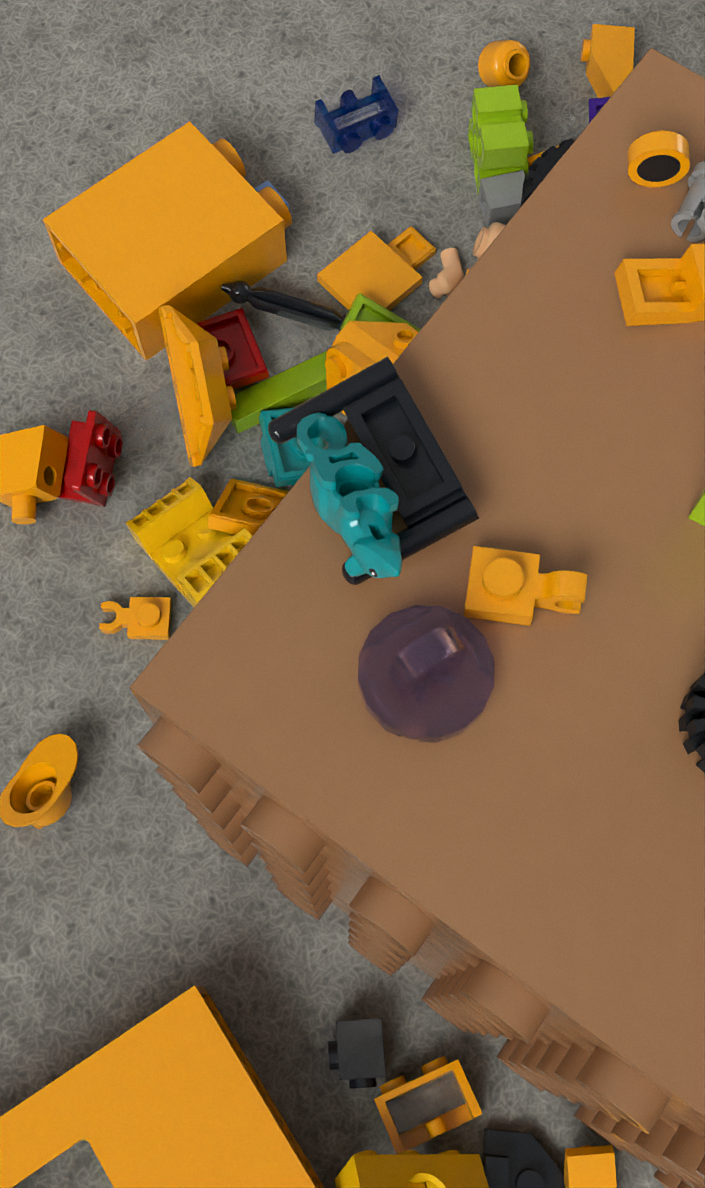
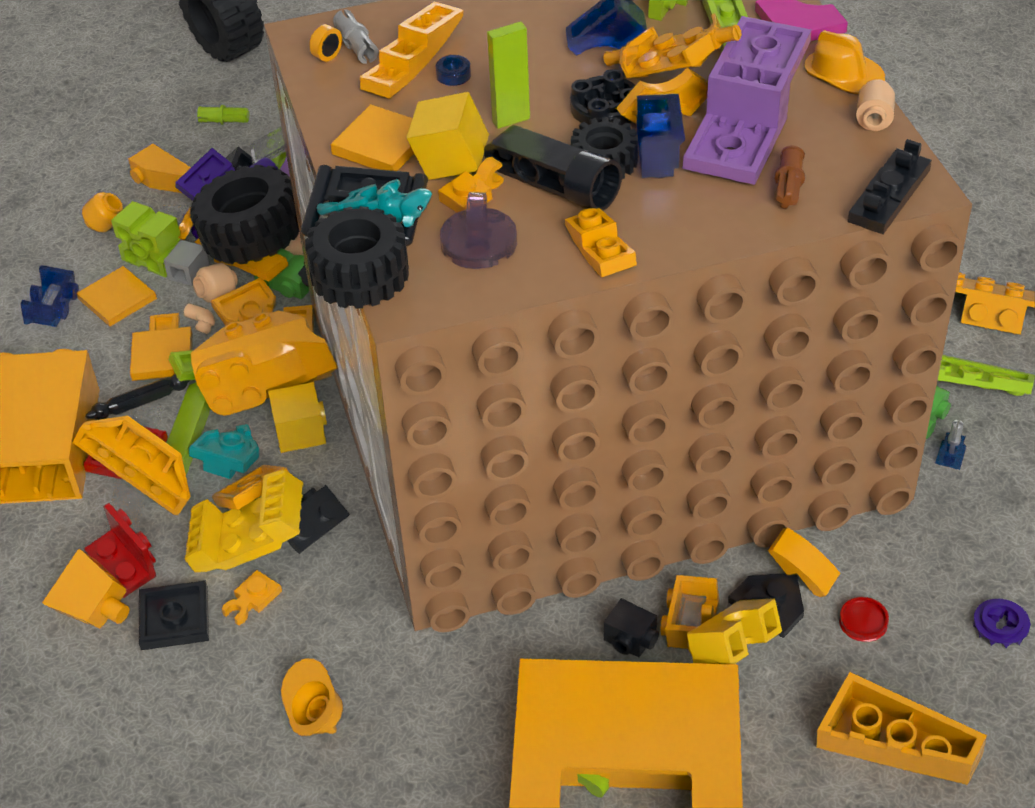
camera: 50 degrees left, 25 degrees down
(64, 564) = (173, 615): none -> black plate
(227, 501) = (357, 257): none -> black tyre
(413, 172) = (116, 296): none -> light orange tile
(529, 384) = (376, 140): none -> light orange tile
(545, 862) = (599, 242): none -> light orange slope
(571, 485) = (448, 135): none -> yellow head
(646, 747) = (557, 167): none -> black beam

